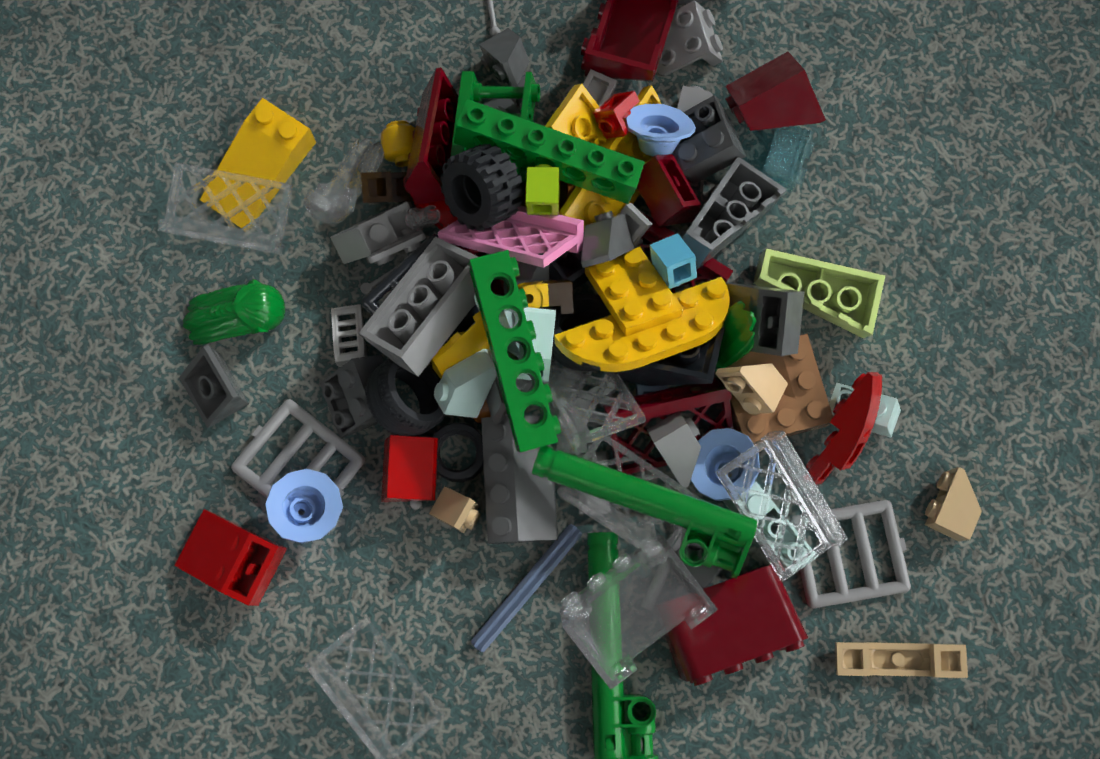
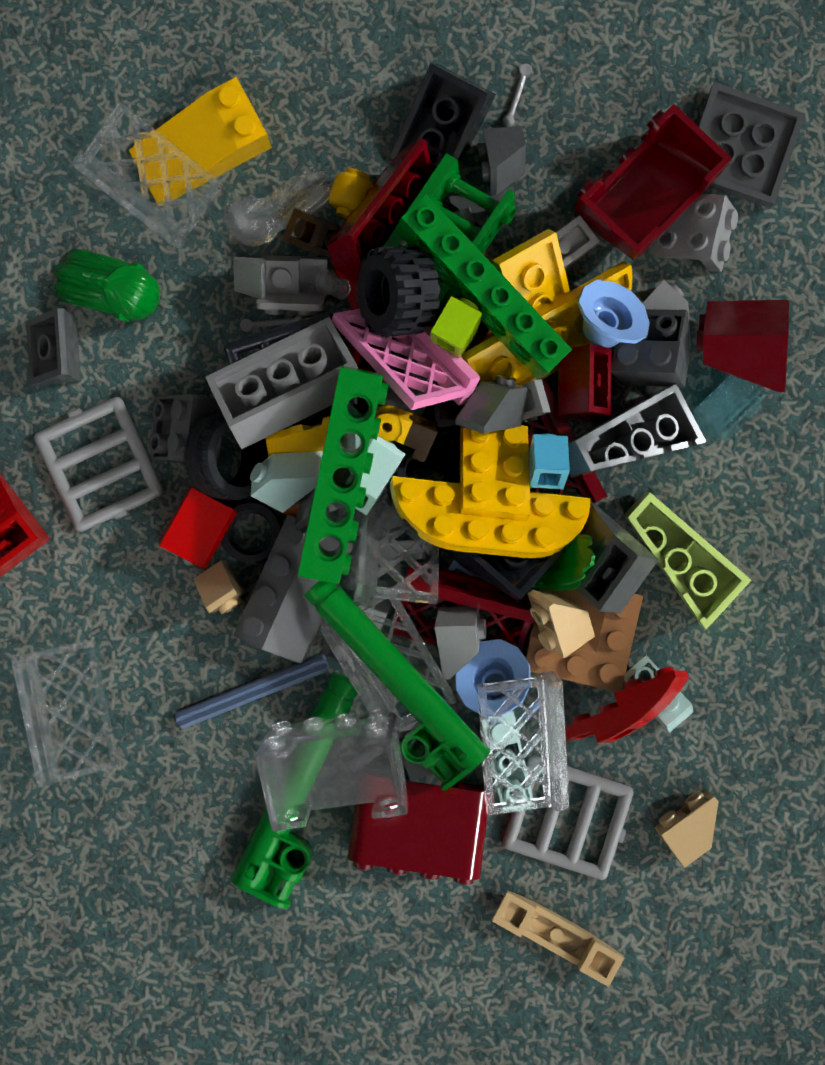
camera: 25 degrees right, 10 degrees up
(305, 492) = (84, 494): light blue hat -> none
(340, 357) = (191, 368): white slope -> none
(442, 42) = (445, 115): none -> black slope
(613, 111) = (573, 276): red bracket -> none

